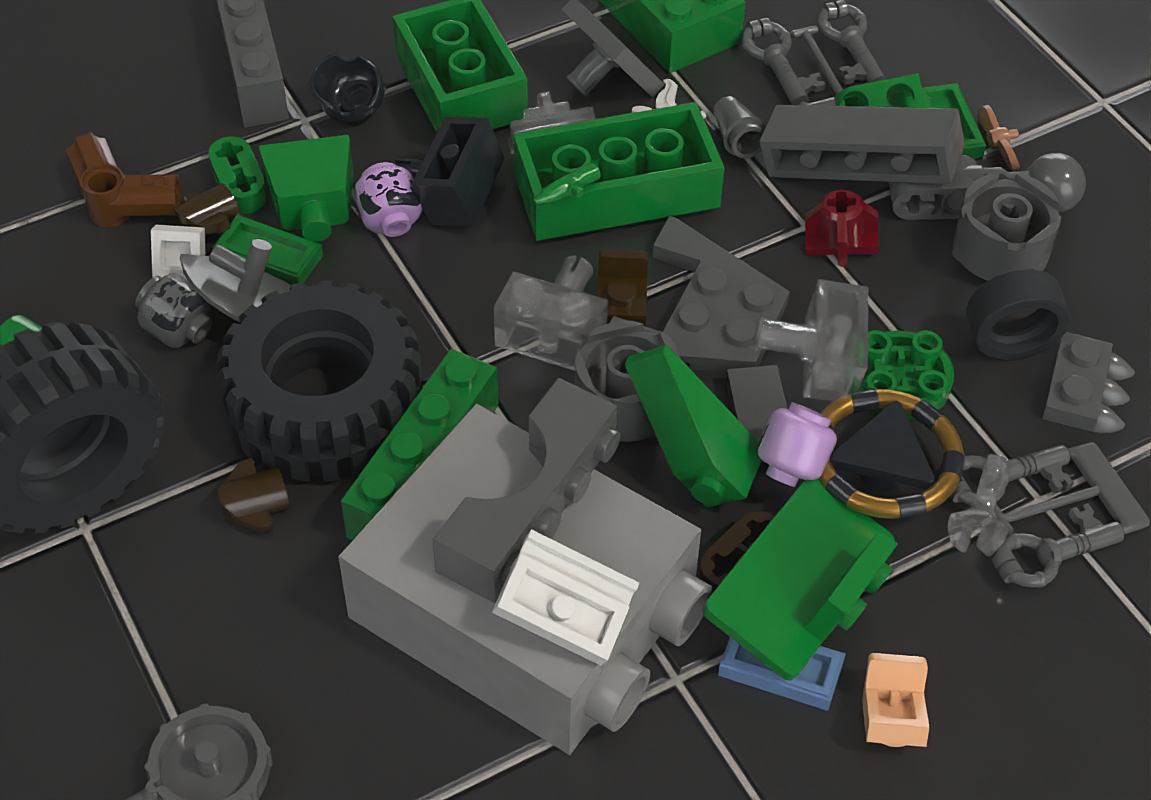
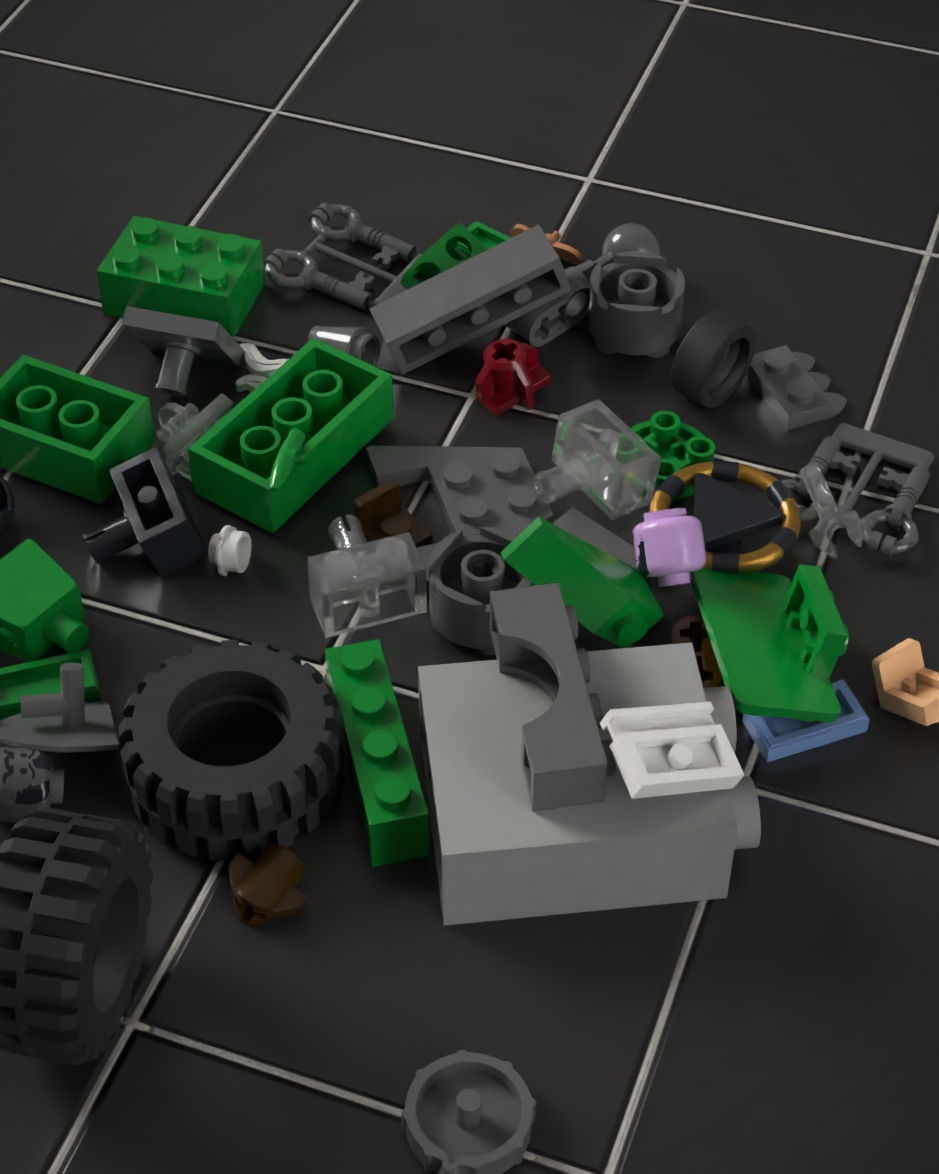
camera: 40 degrees left, 5 degrees down
(387, 199) = (113, 574): lavender head -> none
(489, 234) = (230, 550): none -> white plate

